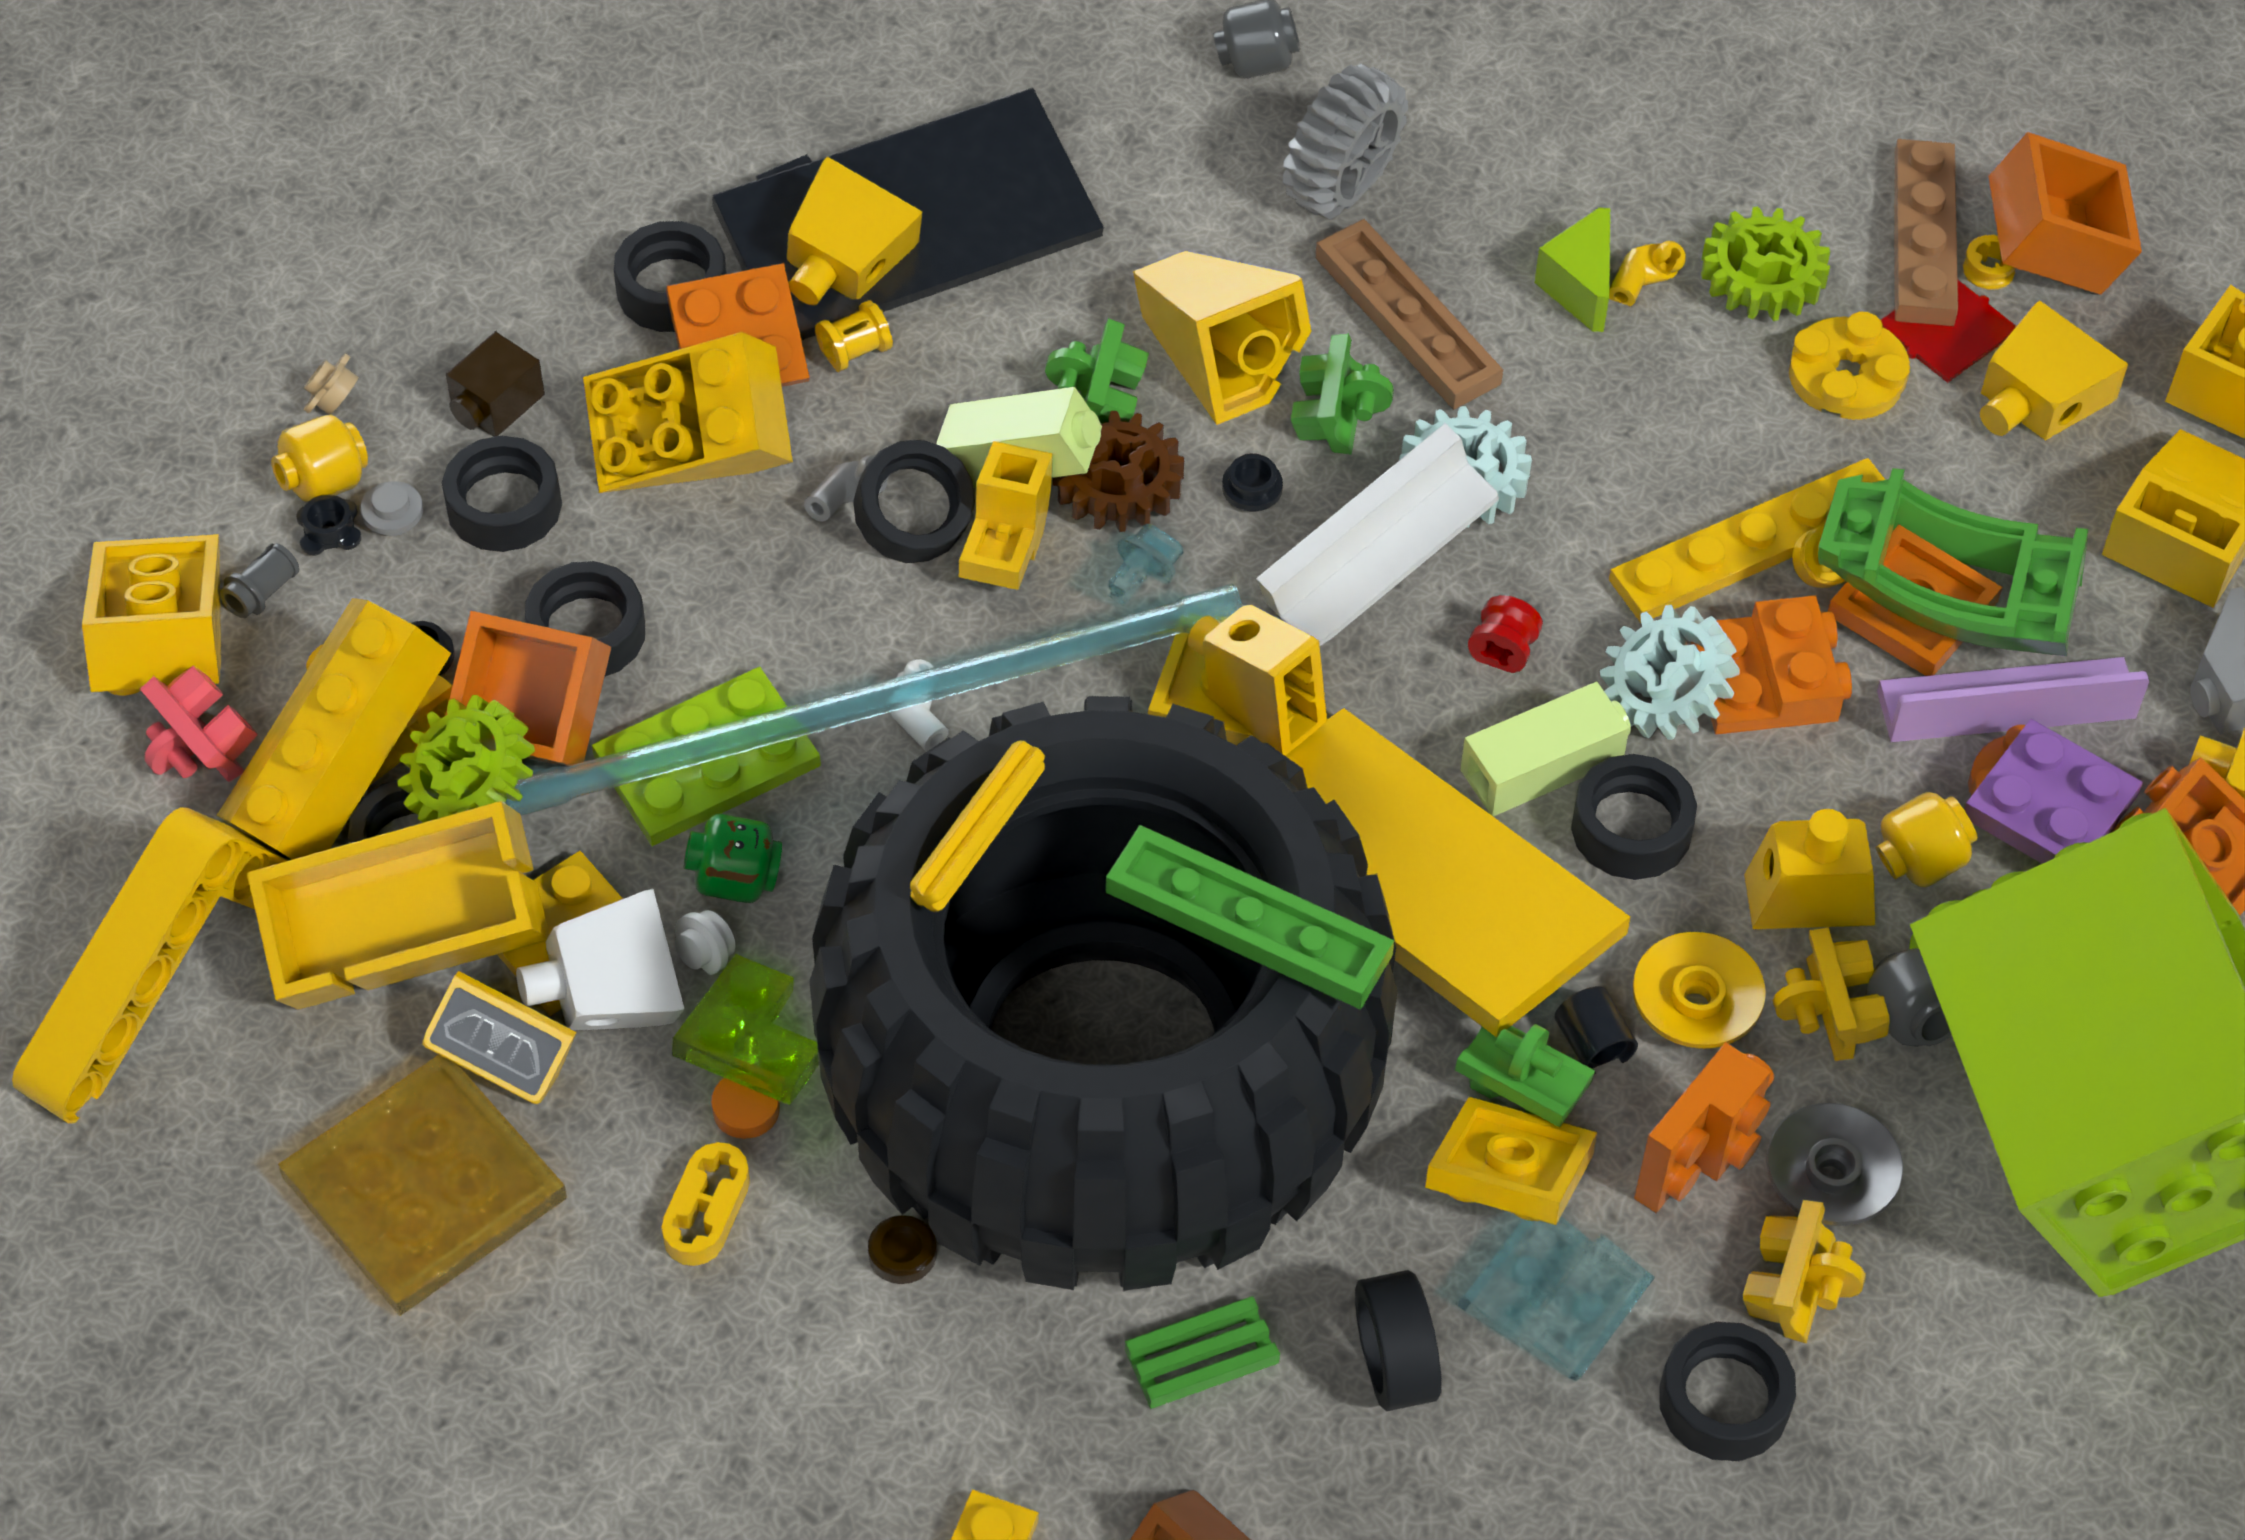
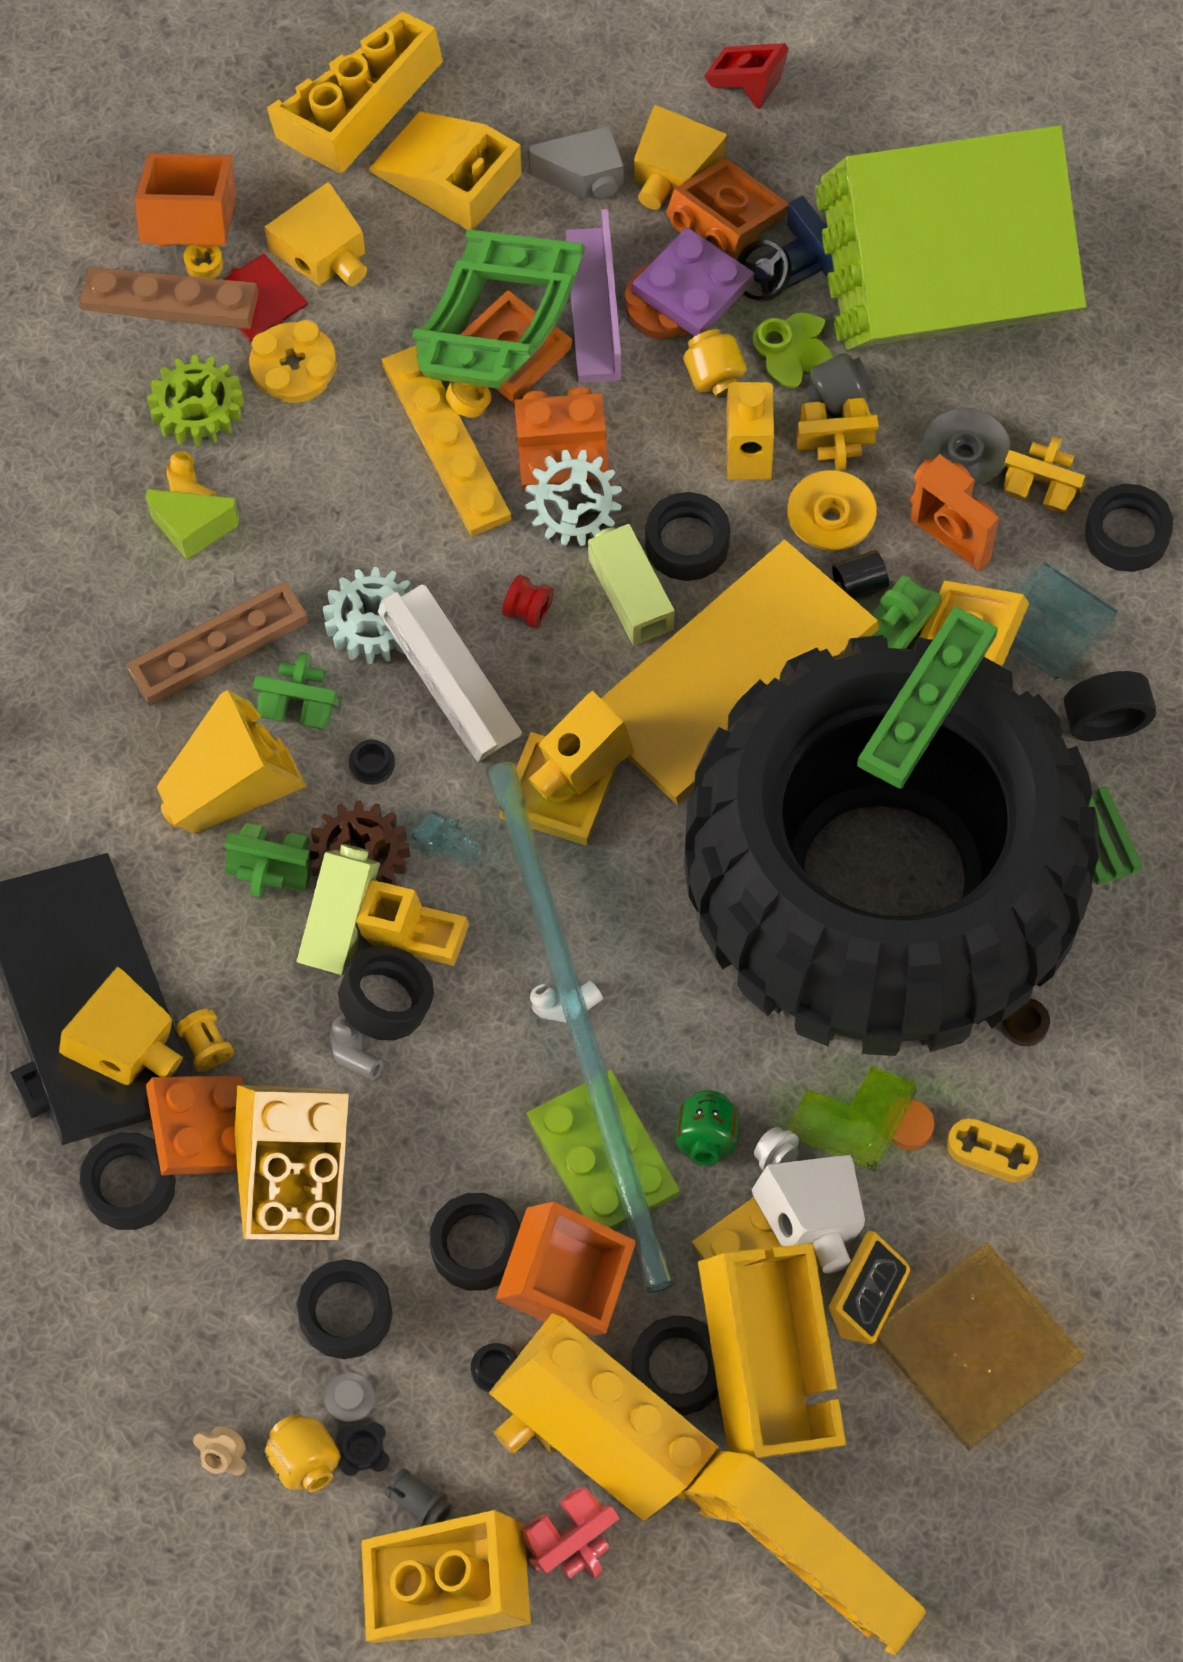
camera: 85 degrees left, 10 degrees up
(461, 763) = (643, 1326): lime gear -> none
(494, 385) = (235, 1316): dark brown brick -> none
(977, 826) = (845, 868): yellow axle -> none
(1345, 140) = (59, 663): light grey gear -> none

